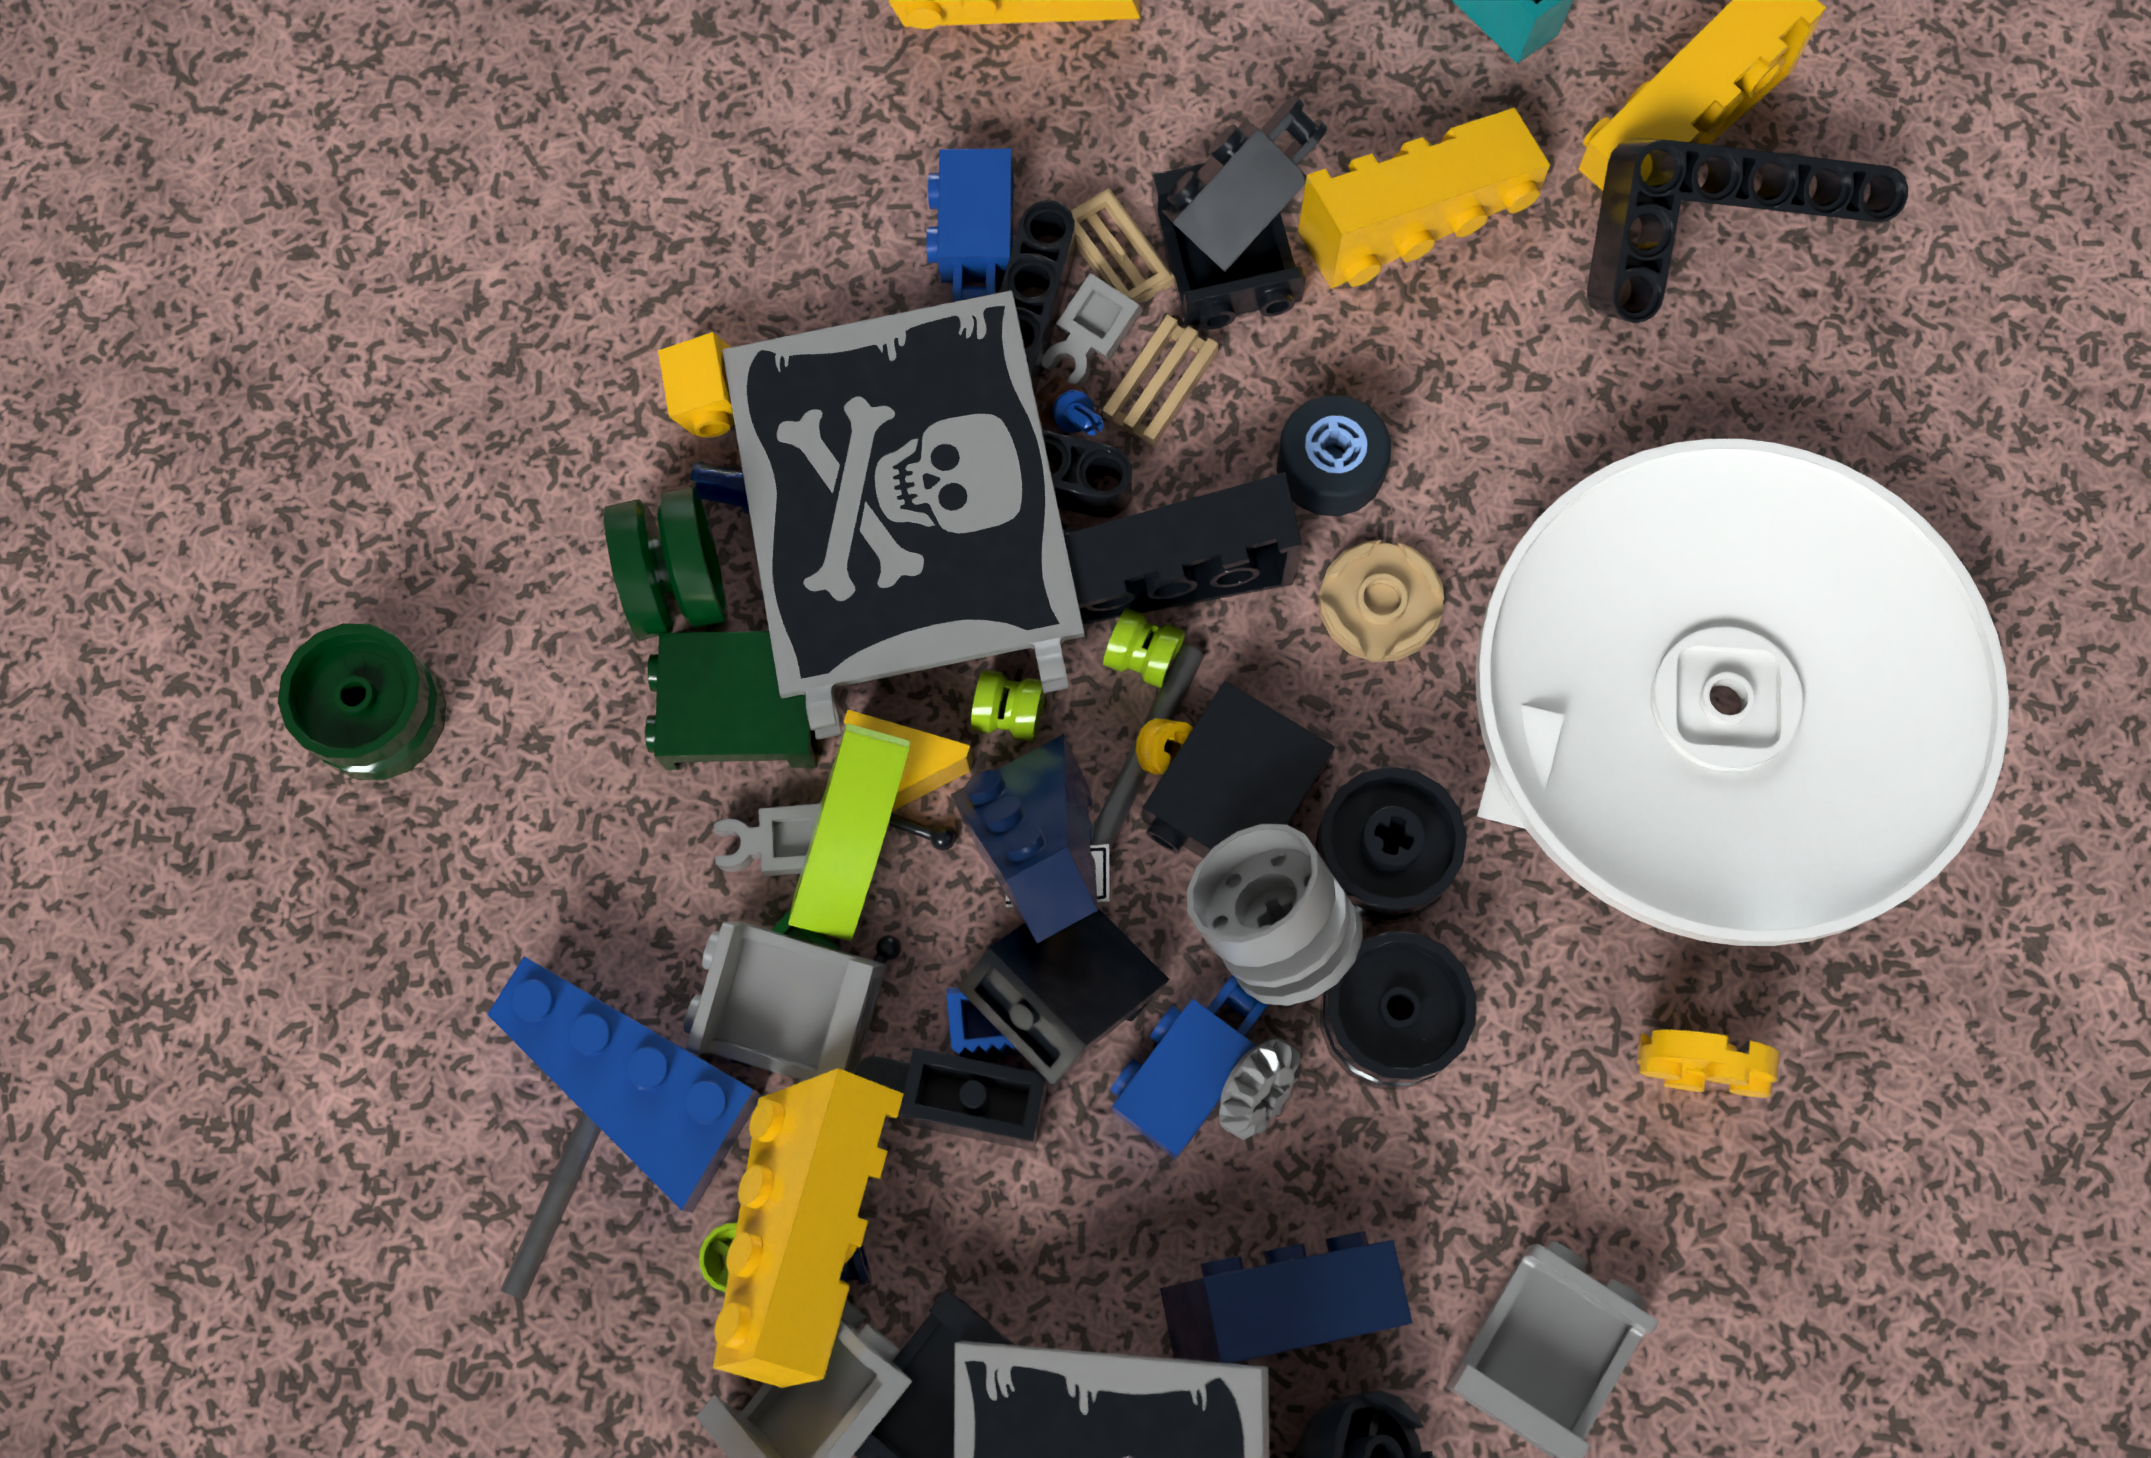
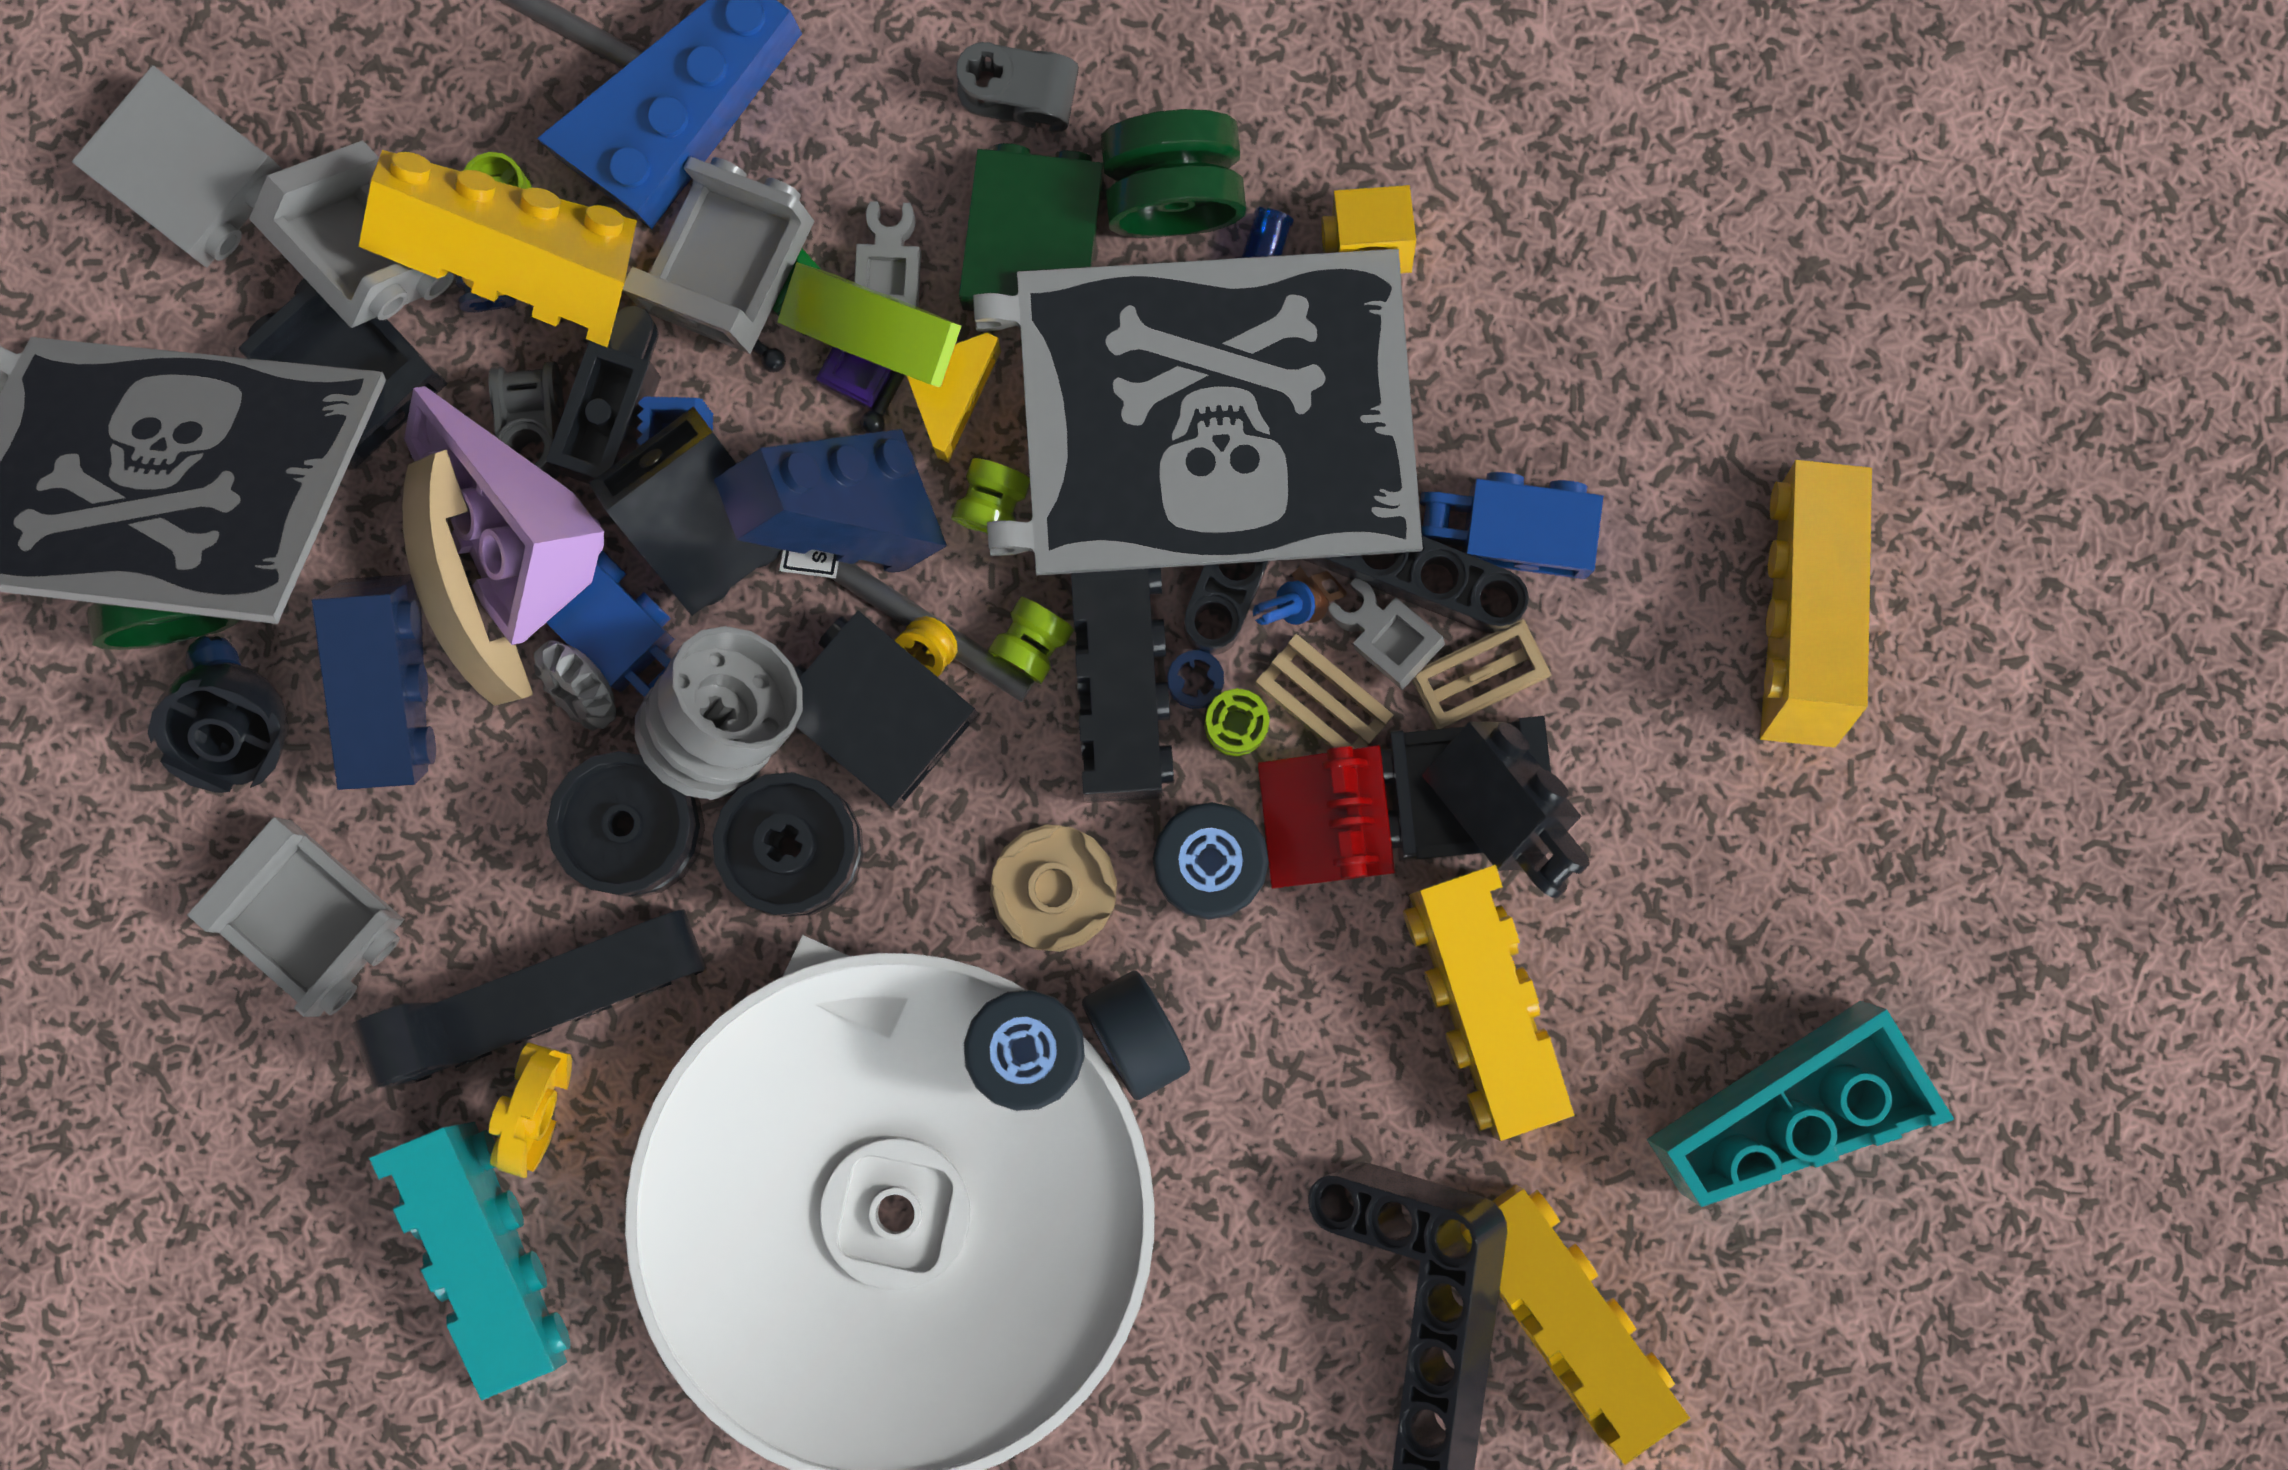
camera: 95 degrees right, 10 degrees up
(579, 729) = (1024, 85): none -> dark grey piece
(898, 862) = (854, 377): none -> dark purple tile
(979, 1188) = (527, 408): none -> dark grey piece
(1098, 1265) = (443, 589): none -> tan slope
(1103, 1168) = (521, 524): none -> lavender wedge
(1150, 480) = (1176, 683): none -> dark blue bush
(1194, 461) = (1238, 732): none -> lime wheel
(1272, 356) = (1326, 817): none -> red hinge
(1512, 490) = (1136, 1035): none -> black wheel
(1547, 588) = (1044, 1047): none -> black wheel
(1635, 1159) = (424, 1038): none -> black beam
(1862, 1102) = (476, 1256): none -> teal wedge

